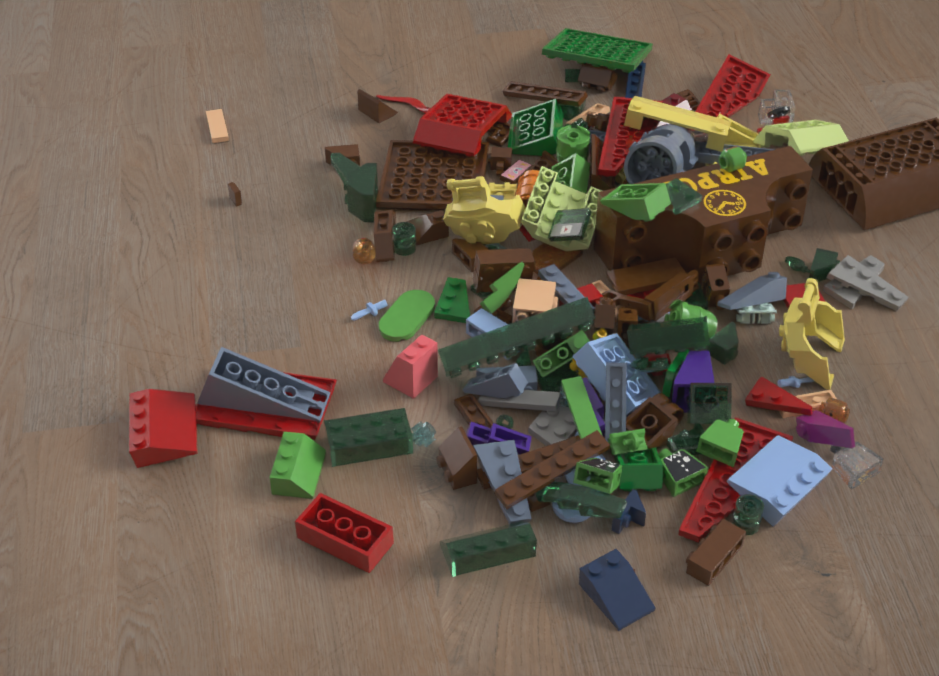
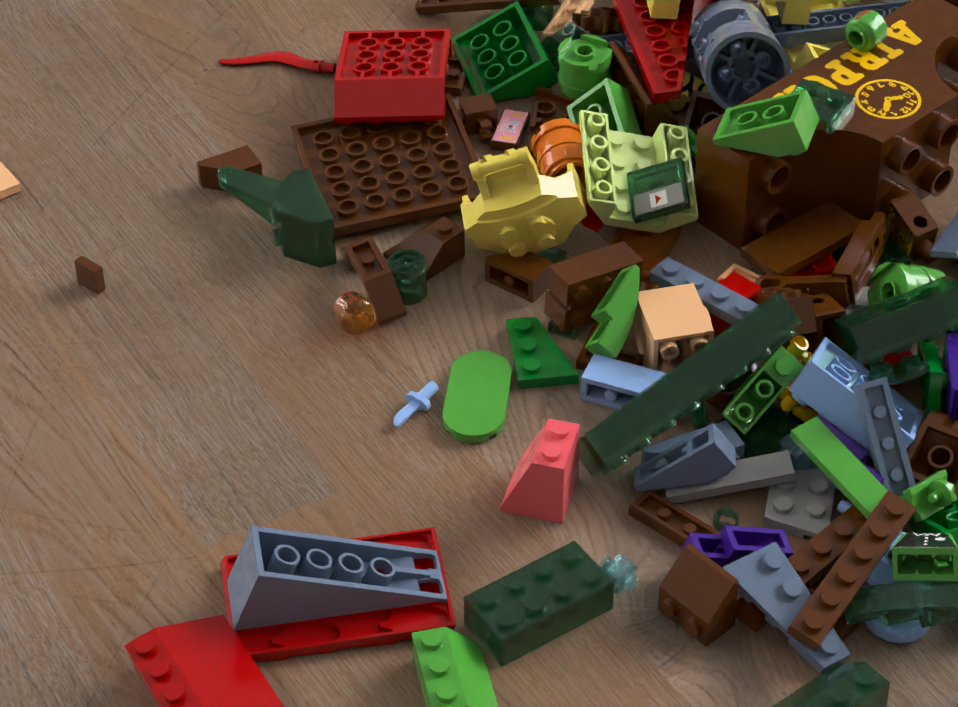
camera: 20 degrees left, 0 degrees up
(373, 107) = (231, 80): reddish brown slope -> none

